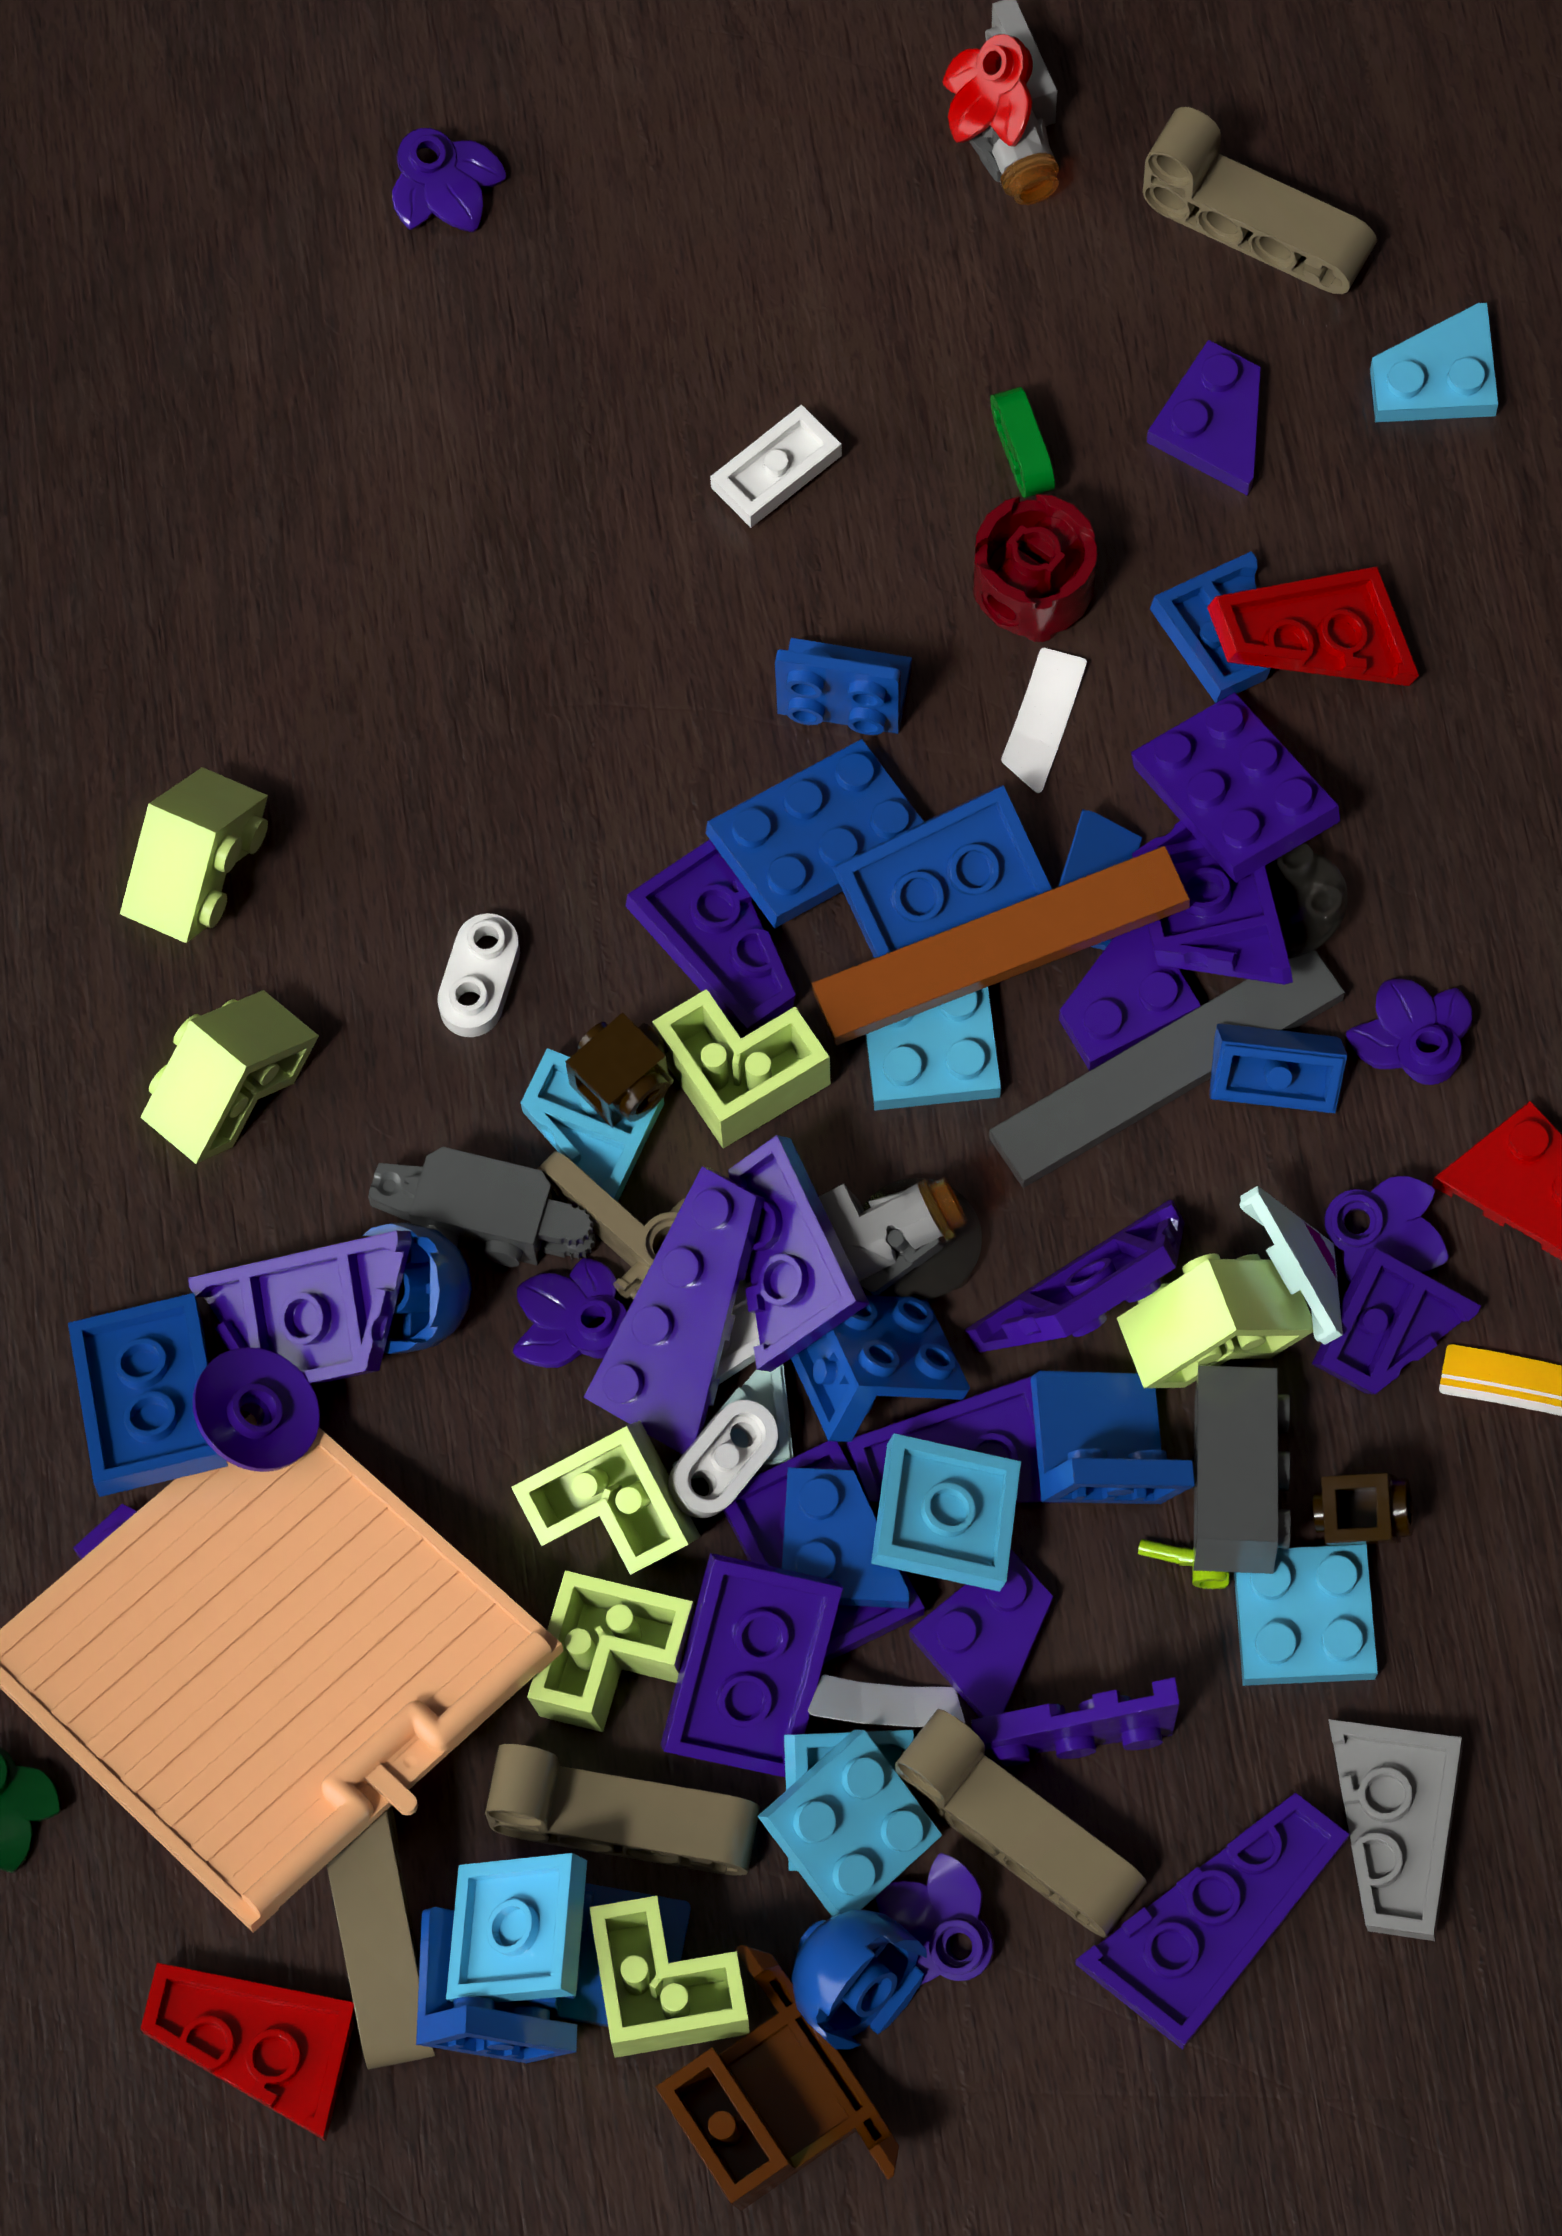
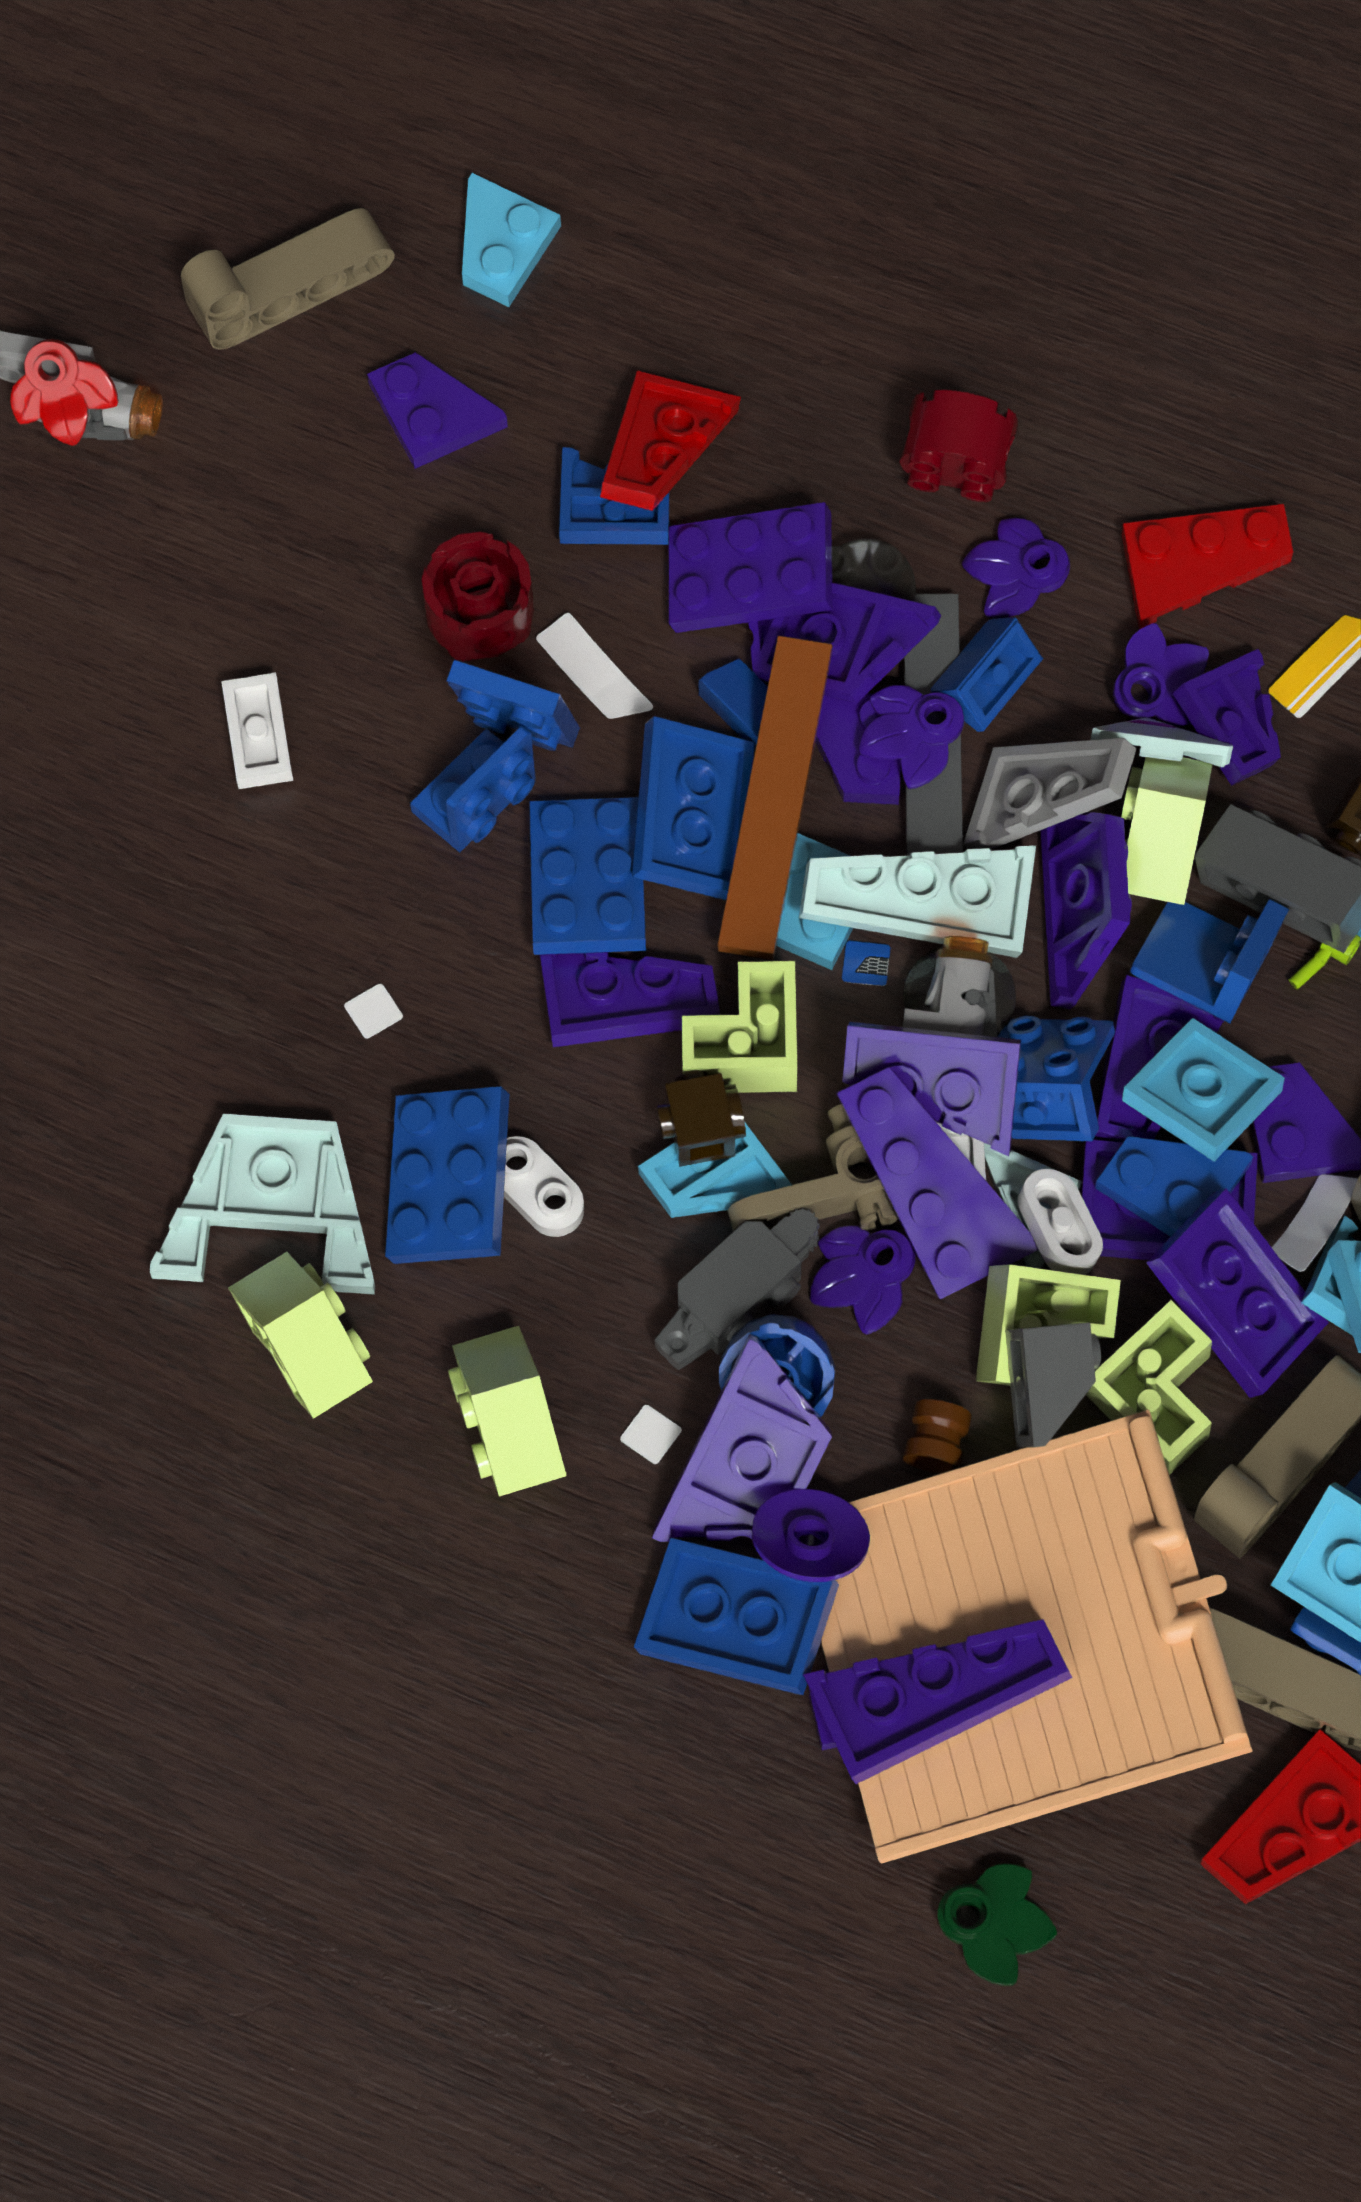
camera: 60 degrees left, 0 degrees up
(140, 1597) = (917, 1700): none -> dark purple wing
(298, 1221) = (650, 1434): none -> white sticker
(340, 747) = (270, 1178): none -> light aqua wing
(434, 889) = (447, 1175): none -> blue plate
(442, 1475) = (937, 1436): none -> reddish brown wheel
(541, 1529) = (1049, 1377): none -> dark grey slope
(568, 734) = (373, 1011): none -> white sticker
(901, 1136) = (866, 963): none -> blue sticker
(923, 654) = (504, 702): none -> blue plate
(1000, 1158) = (926, 895): none -> light aqua wing
(1022, 442) = (362, 548): green beam -> none
(1151, 1025) = (906, 734): none -> dark purple plate
(1174, 1183) = (1045, 785): none -> light grey wing
(1498, 894) = (958, 444): none -> dark red brick

